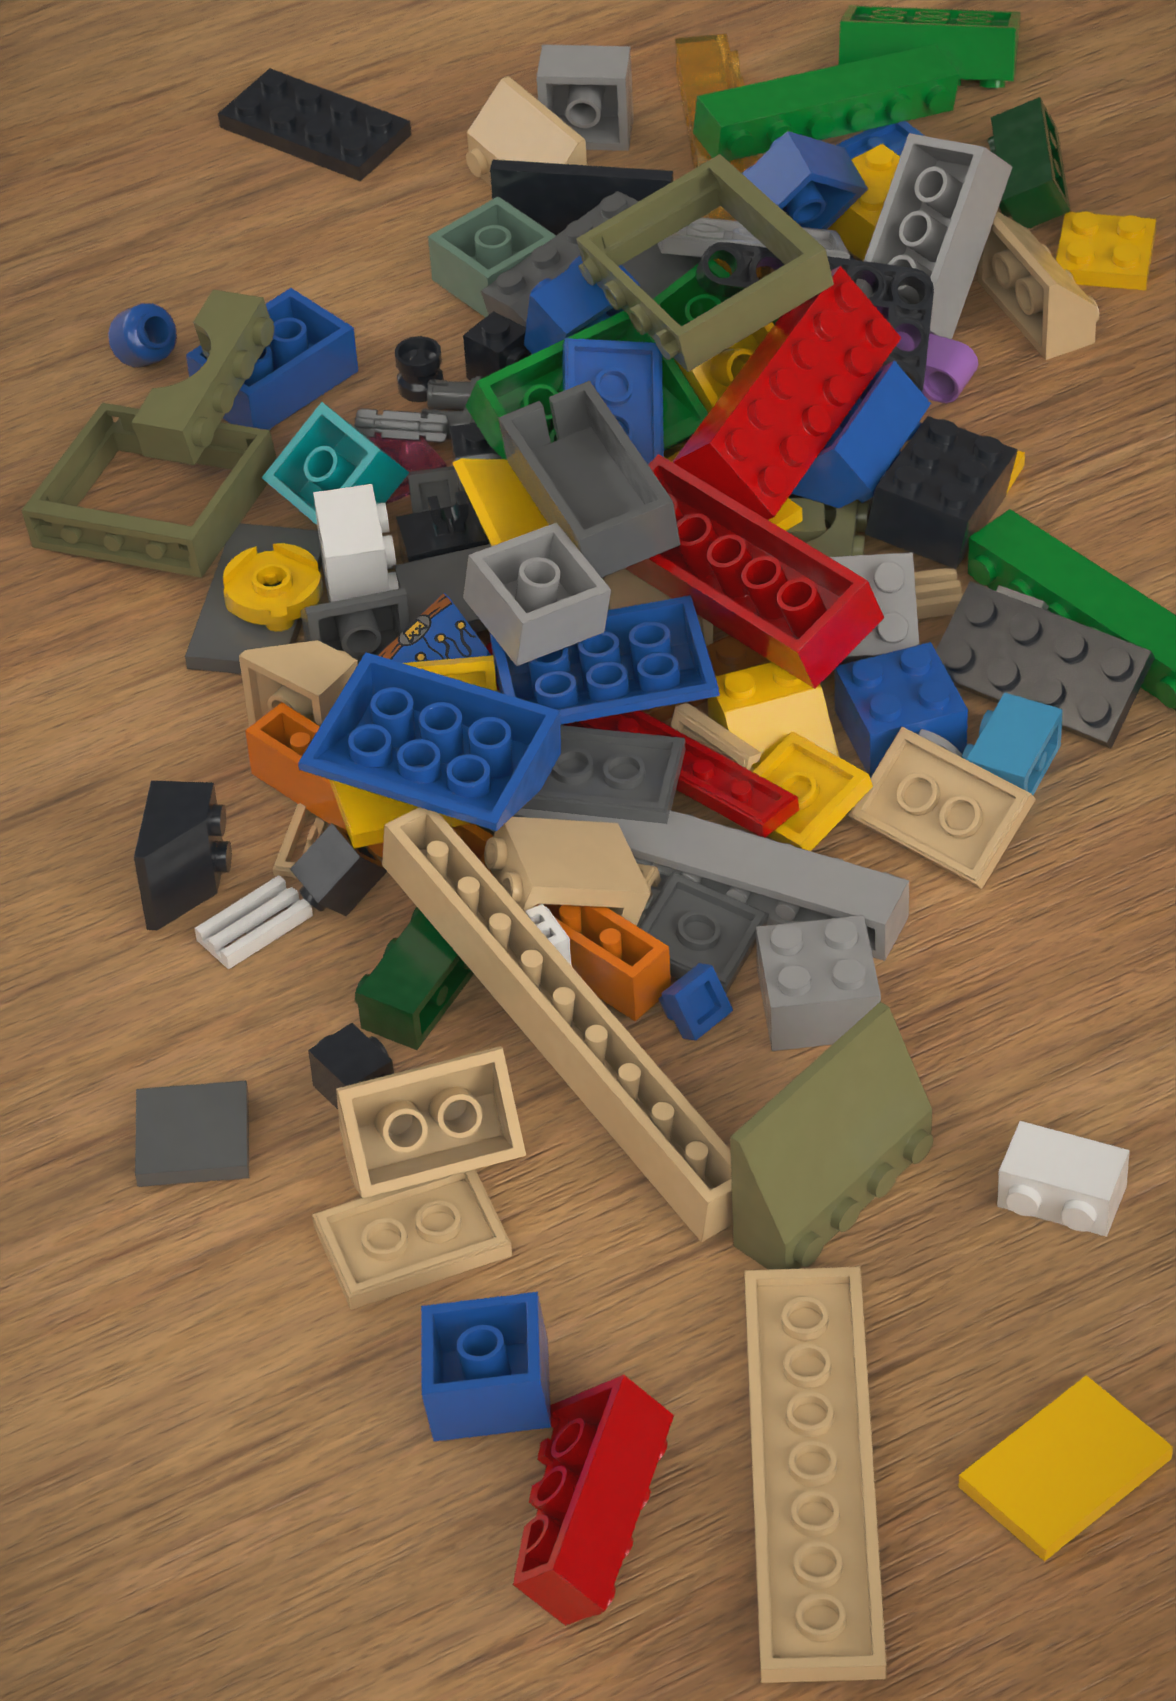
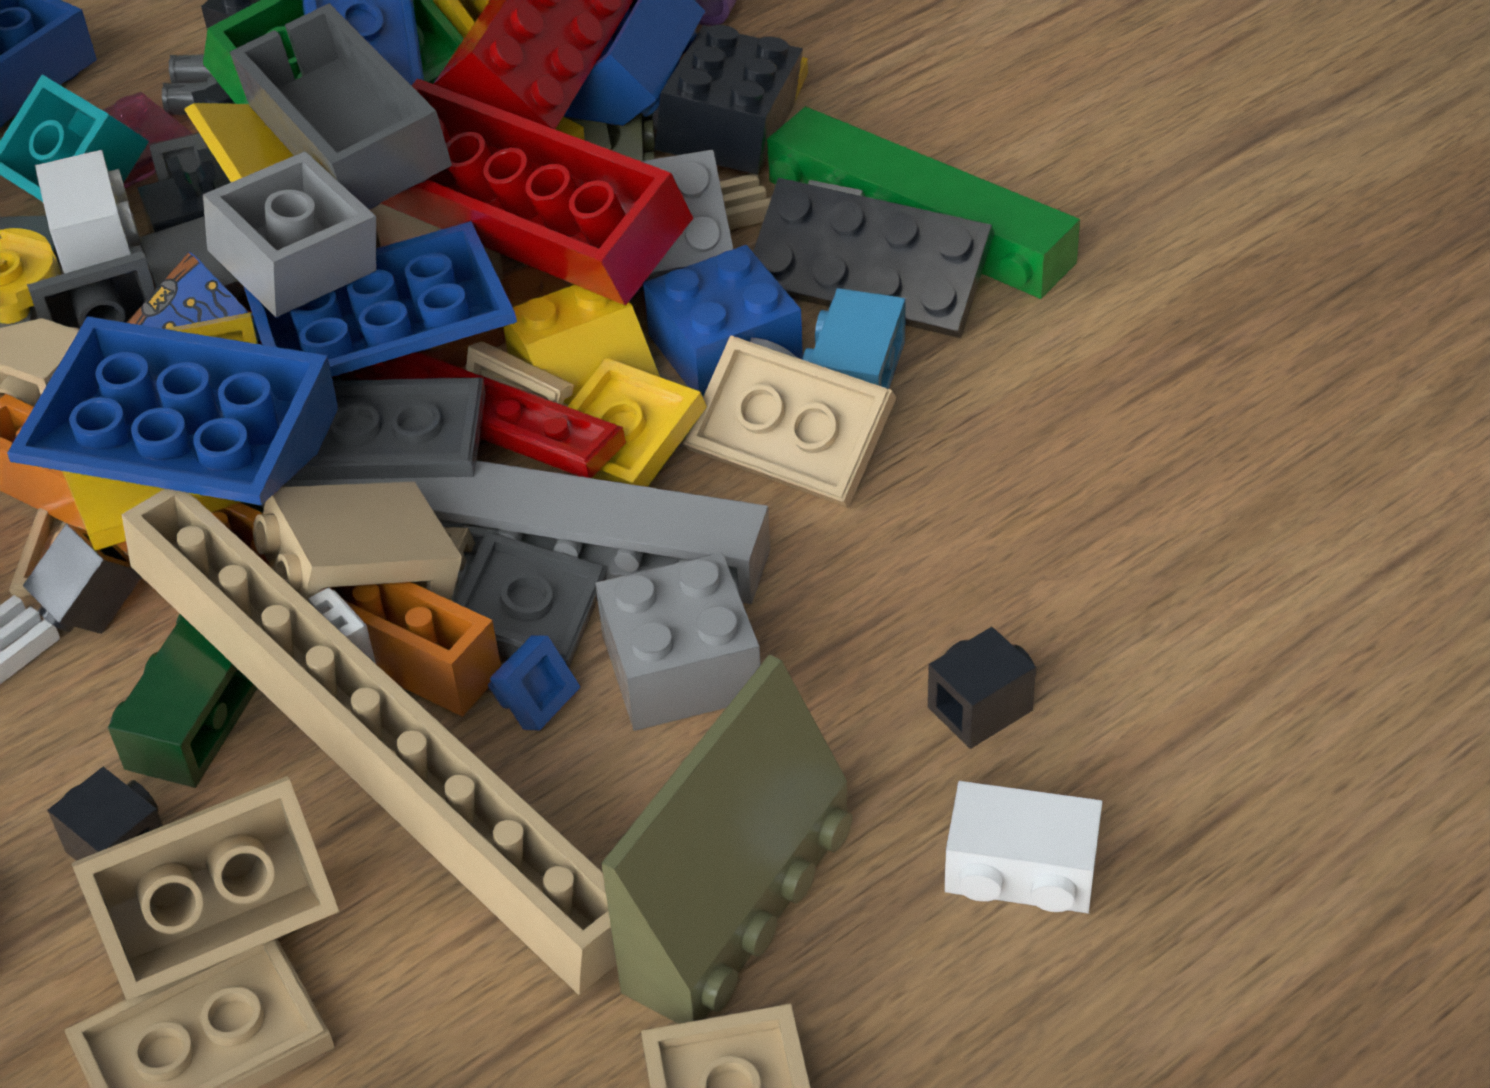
camera: 10 degrees left, 0 degrees up
(402, 425) = (142, 98): dark grey axle -> none
(417, 362) = (156, 39): black wheel -> none
(1058, 1051) = (981, 686): none -> black brick

